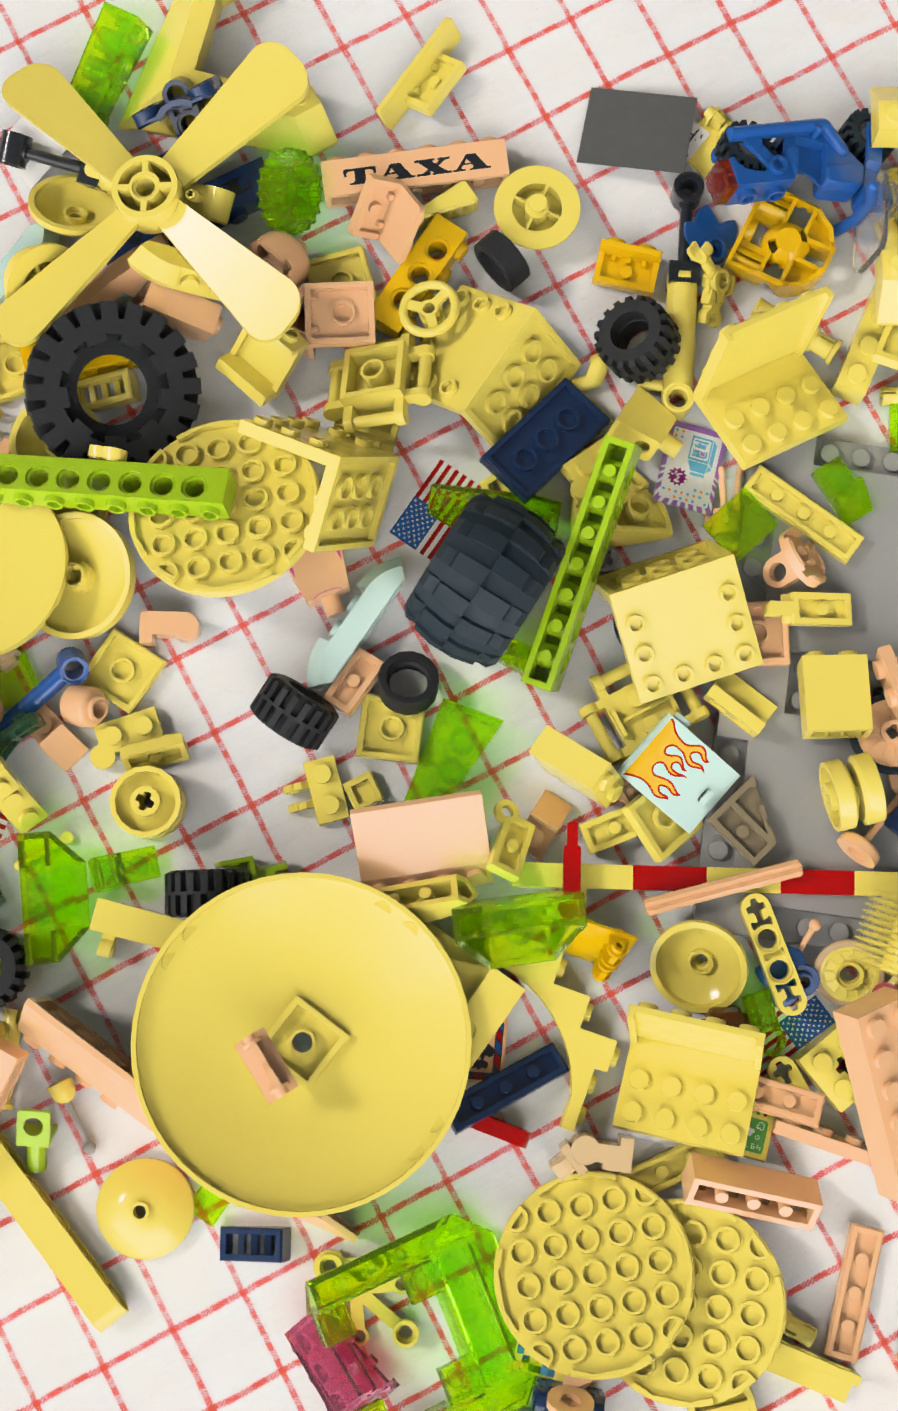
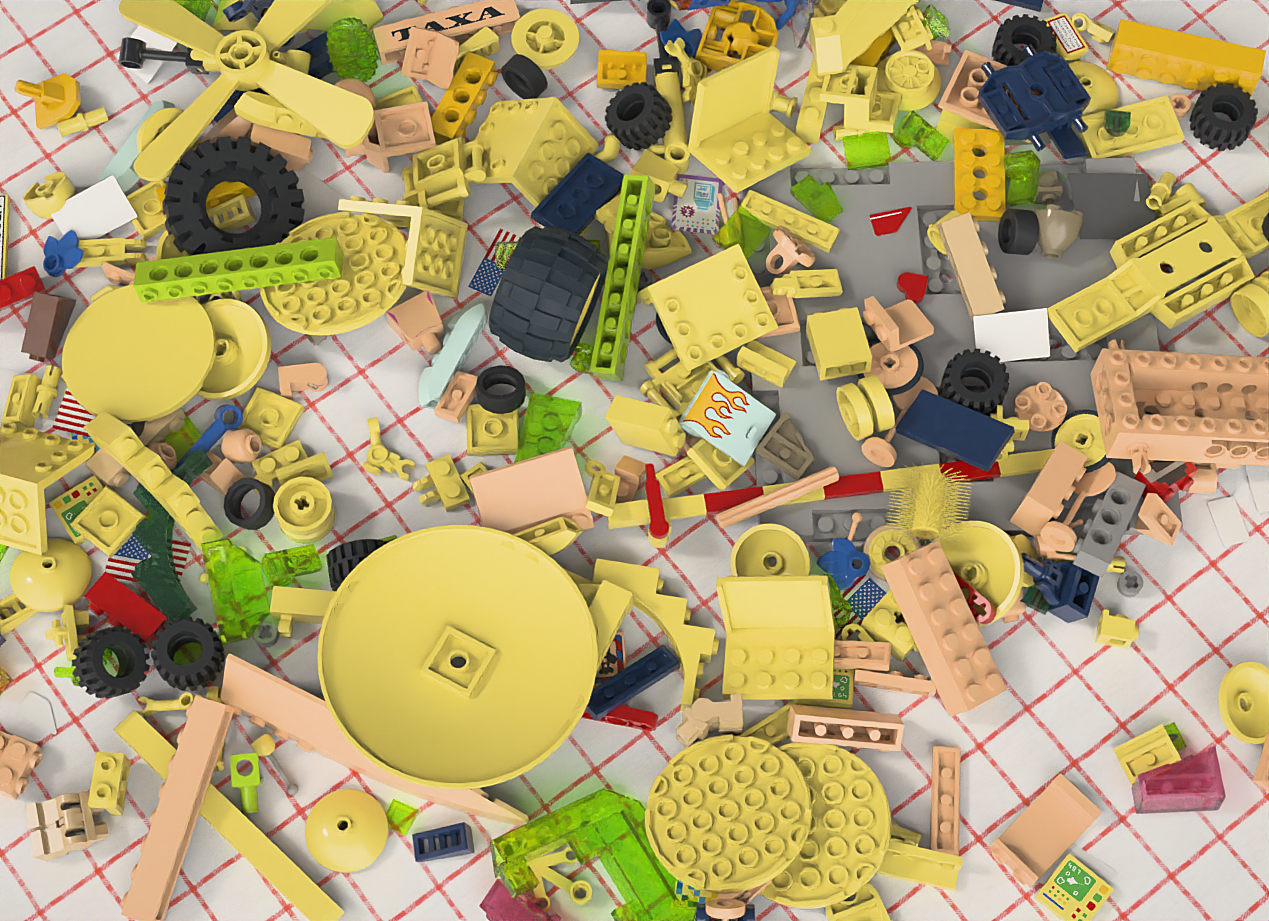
camera: 10 degrees left, 15 degrees down
(63, 784) = (233, 501): none -> black tyre
(68, 206) = (180, 85): light yellow dish -> none
(92, 948) = (266, 642): none -> light grey bush
(107, 453) = (236, 244): light yellow tile -> none
(249, 744) = (380, 457): none -> light yellow piece
(262, 367) = (349, 170): light yellow panel -> none
(266, 1065) = (431, 670): light nougat hinge -> none
(294, 711) = (413, 419): black tyre -> none
(436, 321) = (475, 117): light yellow piece -> none
(519, 927) = (620, 544): clear neon green wedge -> none
(603, 947) = (685, 559): yellow hinge -> none
(767, 956) = (824, 545): light yellow beam -> none

